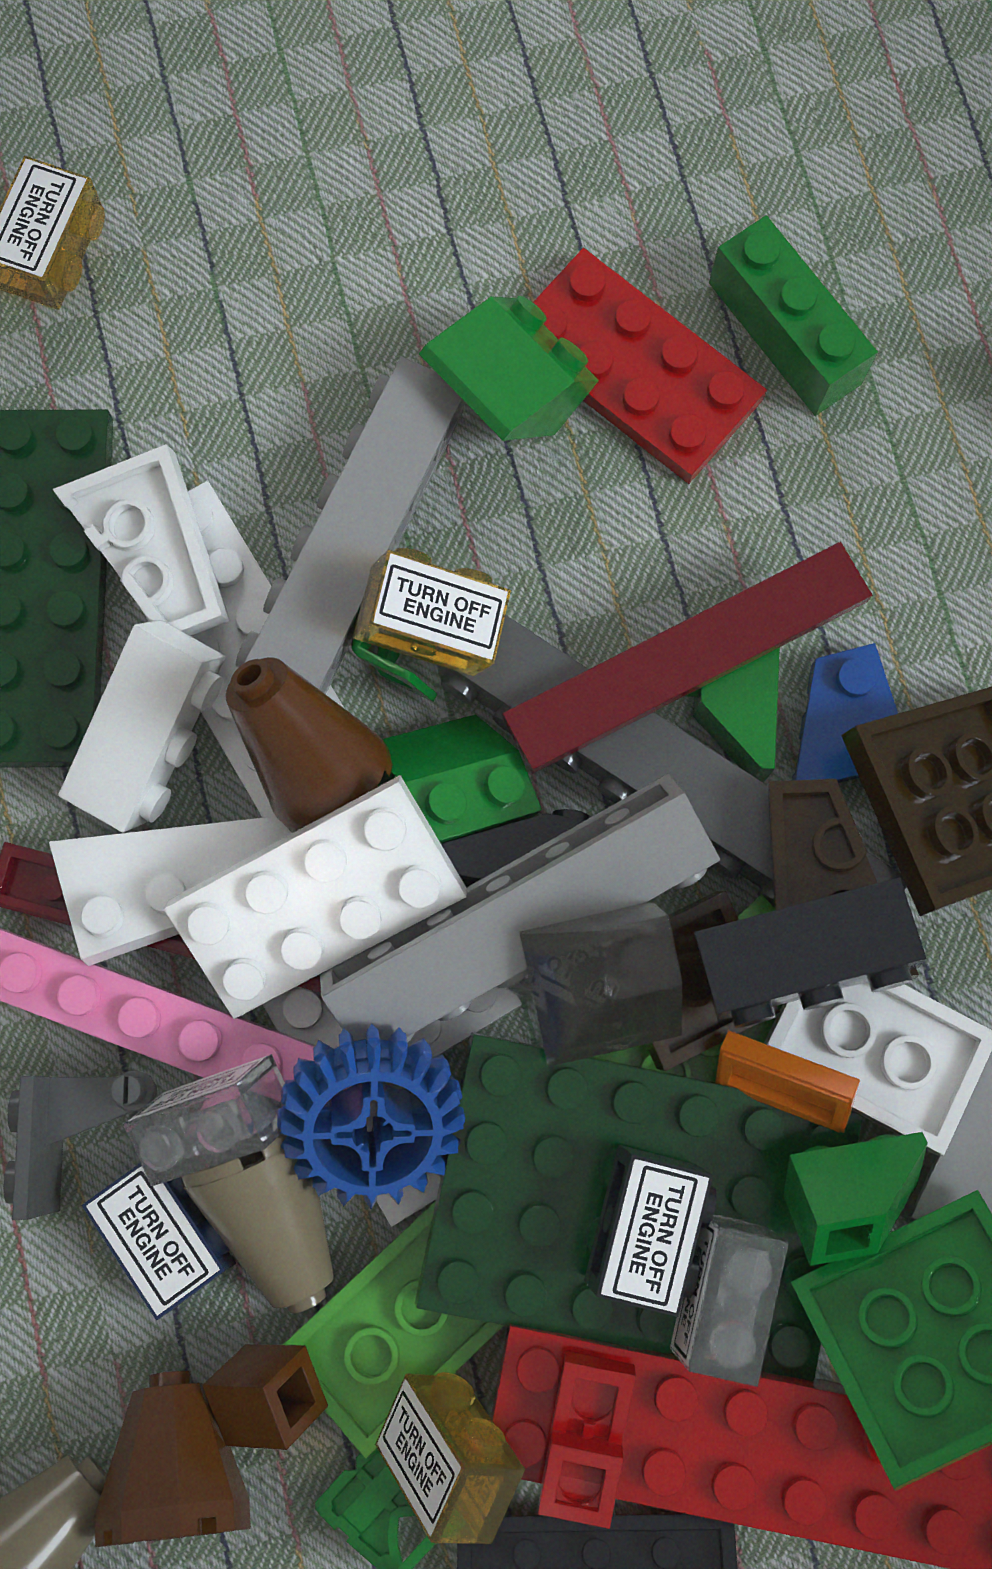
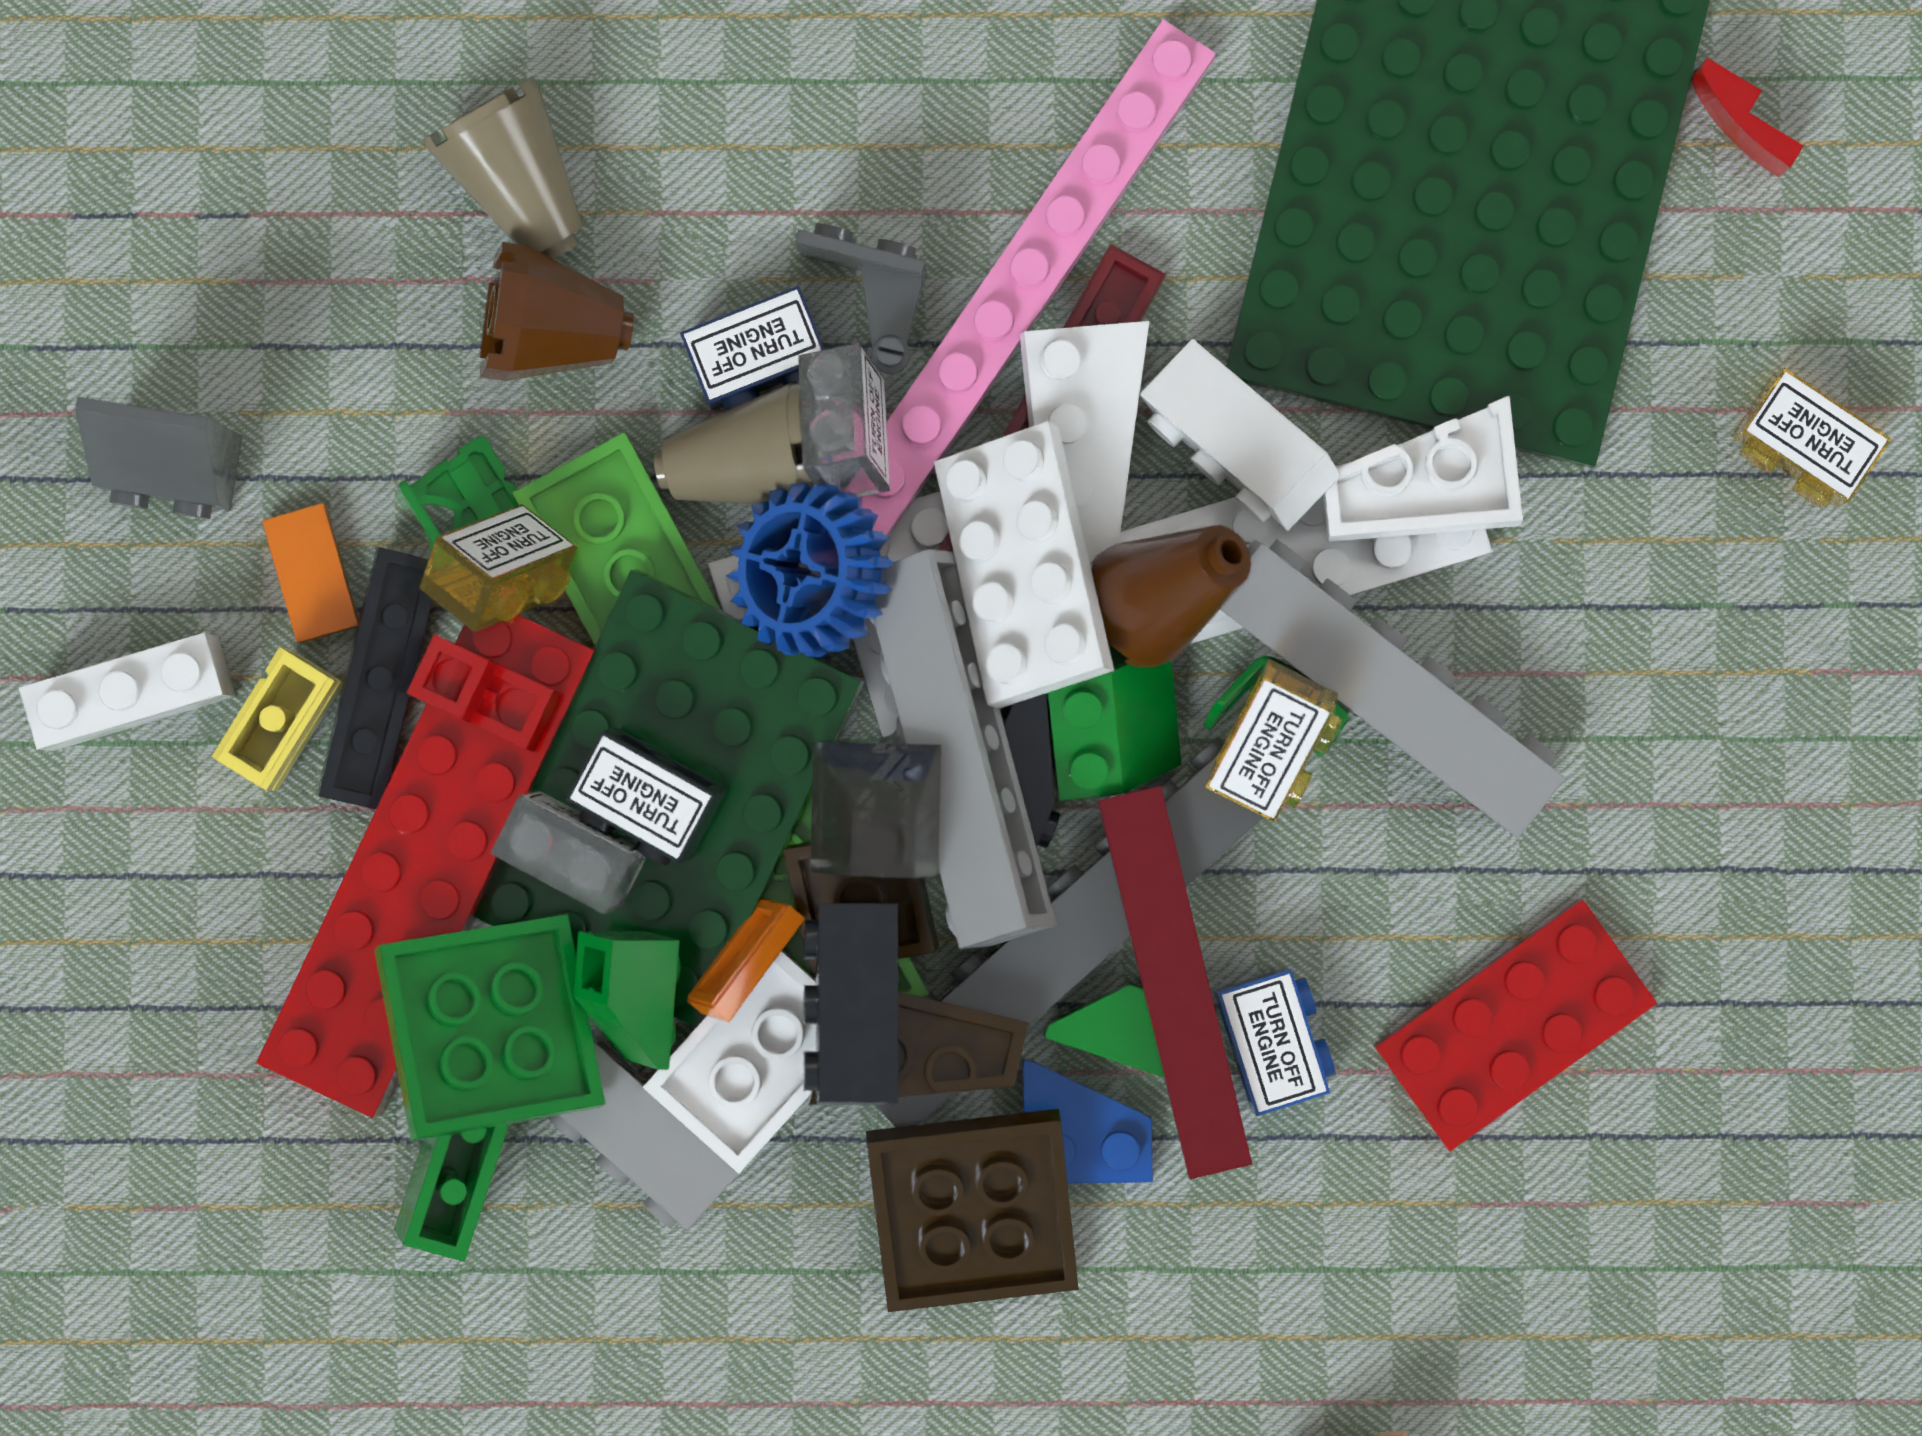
camera: 105 degrees right, 10 degrees up
(265, 1396) = (589, 416): reddish brown brick -> none
(511, 368) = (1523, 886): green slope -> none
(713, 560) = (1274, 1041): none -> brick
(791, 315) = (1521, 1197): green brick -> none

